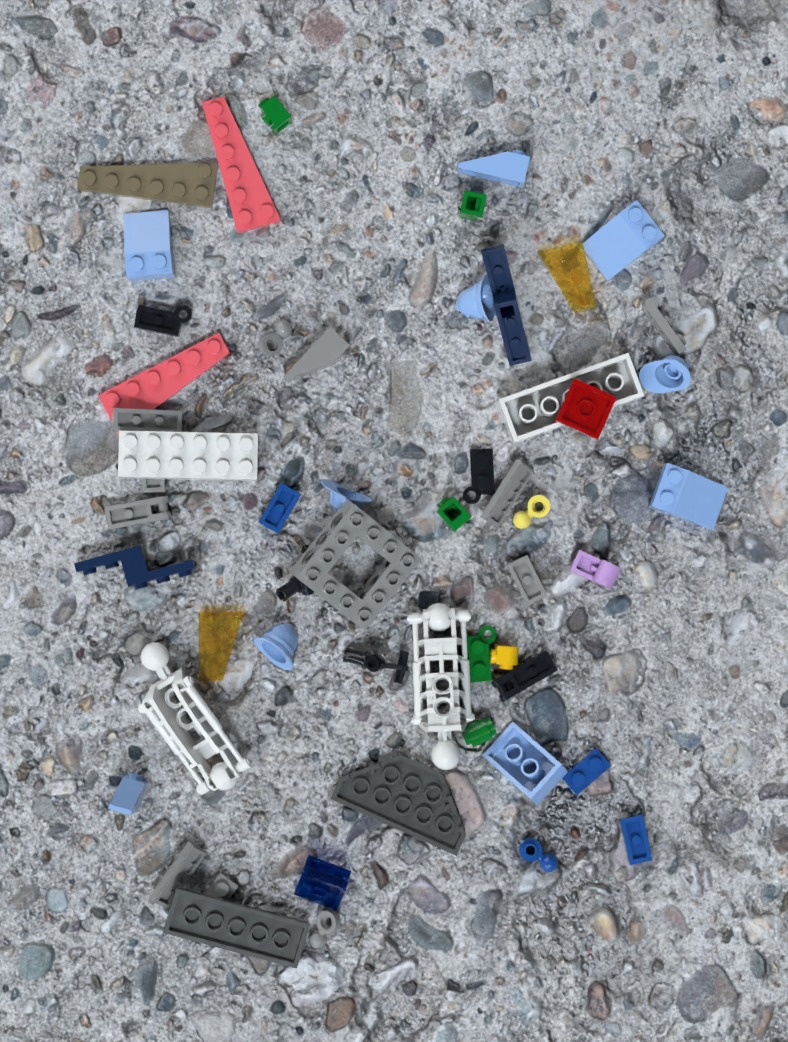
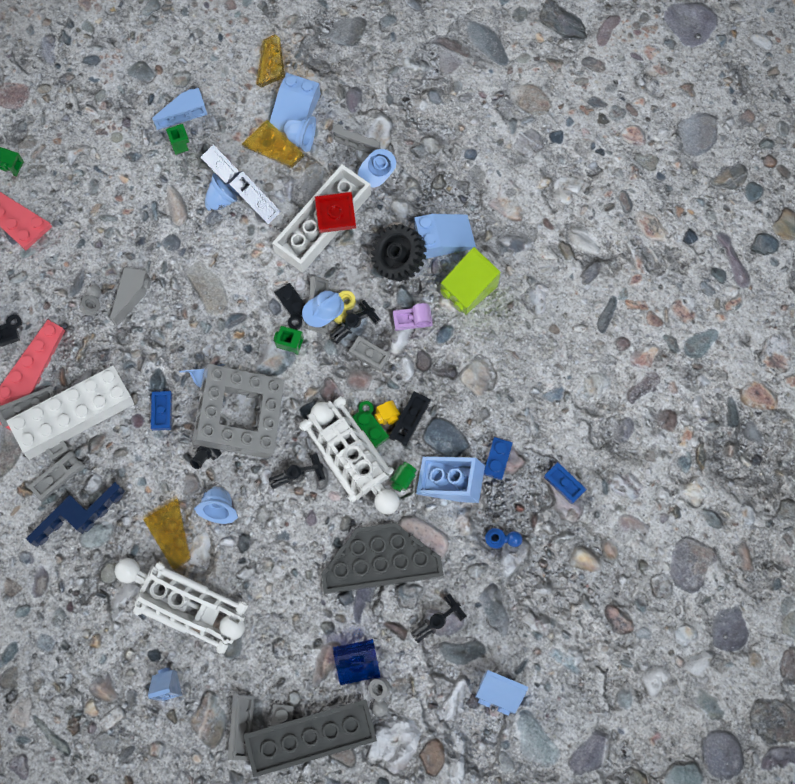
camera: 30 degrees left, 15 degrees down
(424, 895) = (438, 619): none -> black pin
(439, 1000) = (500, 692): none -> light blue slope
(507, 504) = (322, 309): none -> light blue piece
(532, 537) = (353, 321): none -> black pin
(608, 282) = (301, 132): none -> light blue piece
(629, 170) = (271, 62): none -> clear yellow wing
(640, 497) = (411, 253): none -> black wheel
(678, 570) = (470, 281): none -> lime slope

